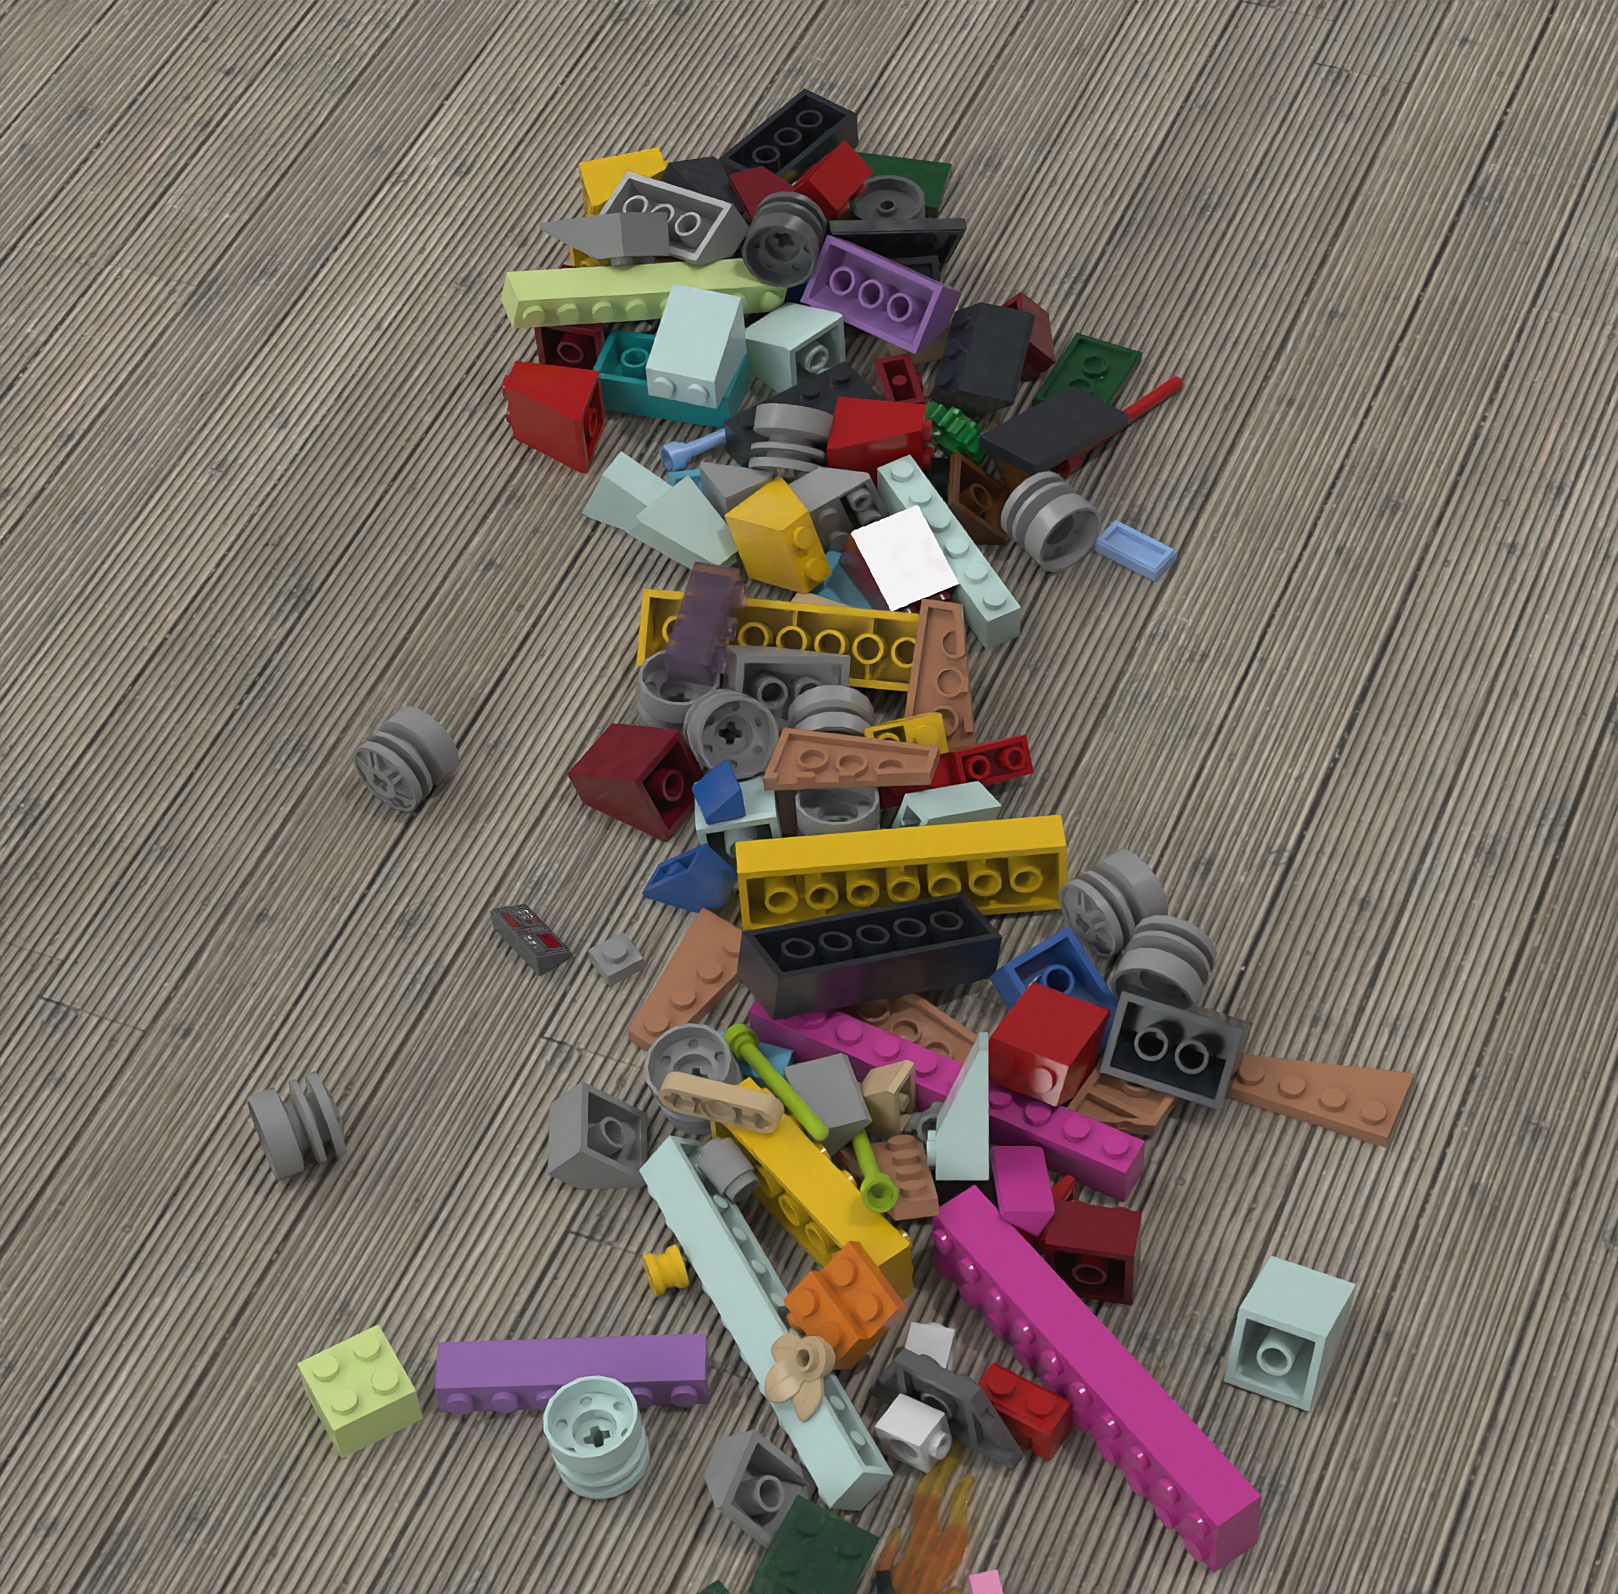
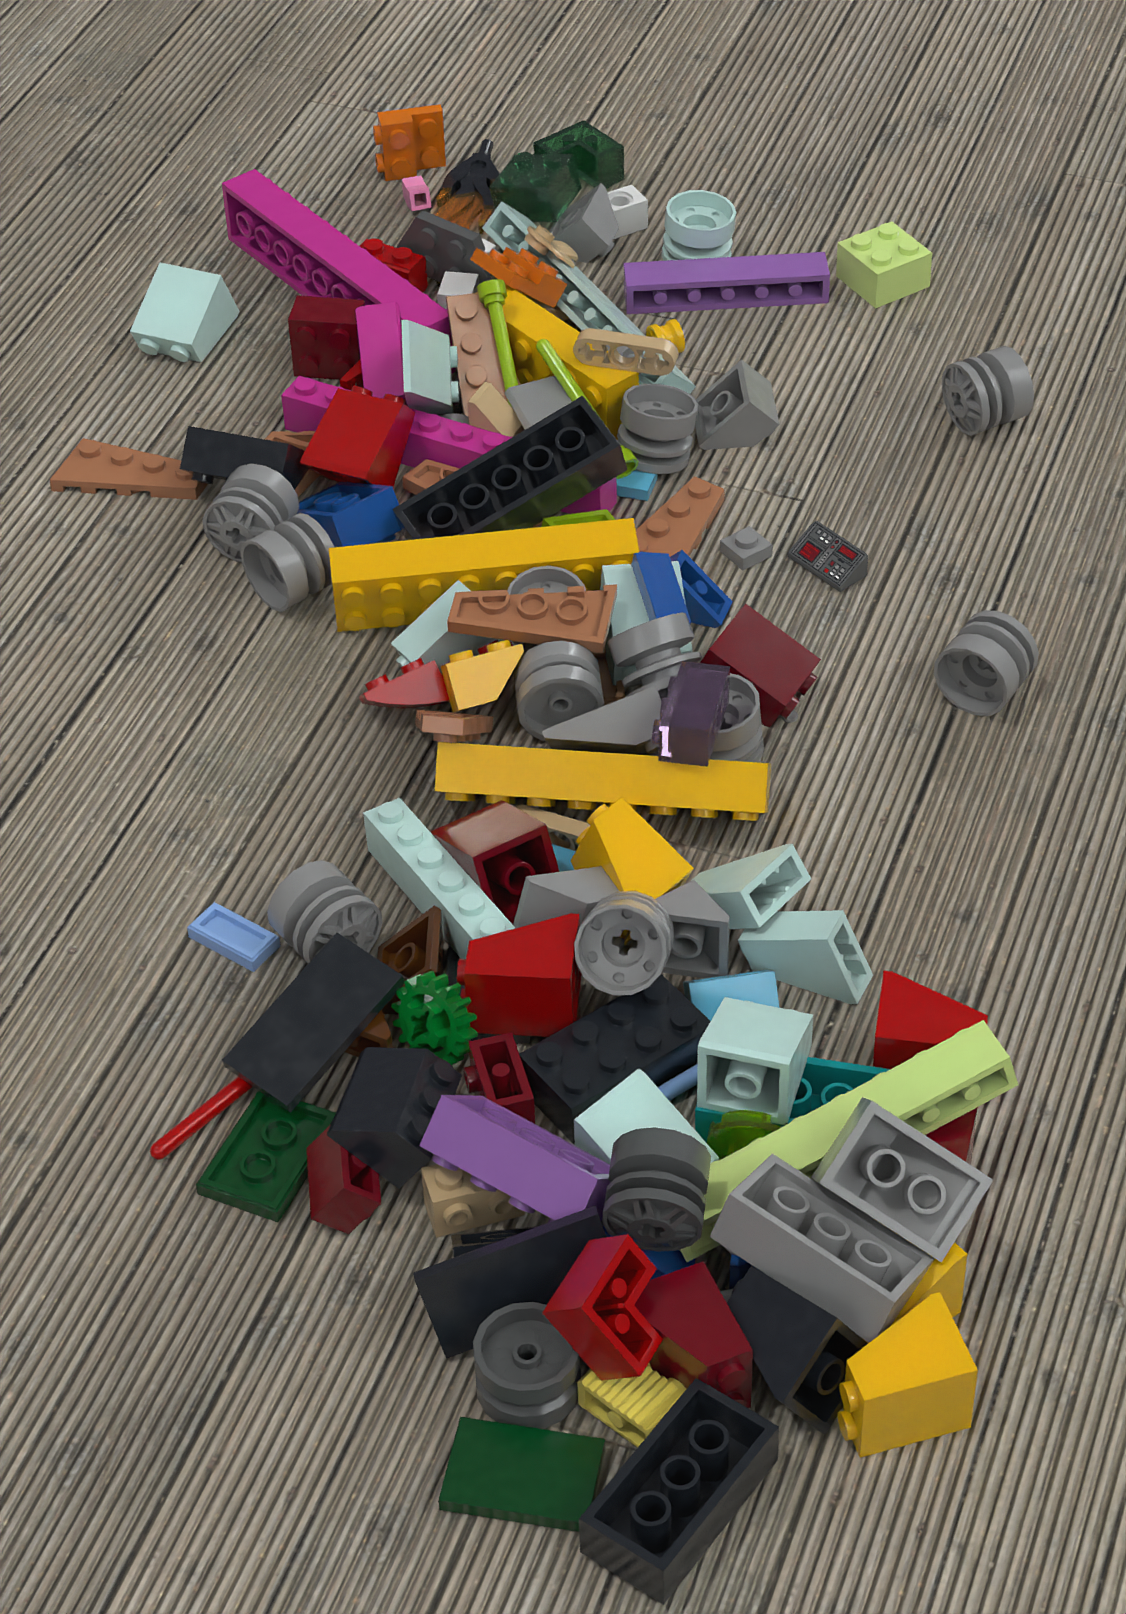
camera: 175 degrees right, 5 degrees down
(691, 1547) = (629, 210): none -> white brick

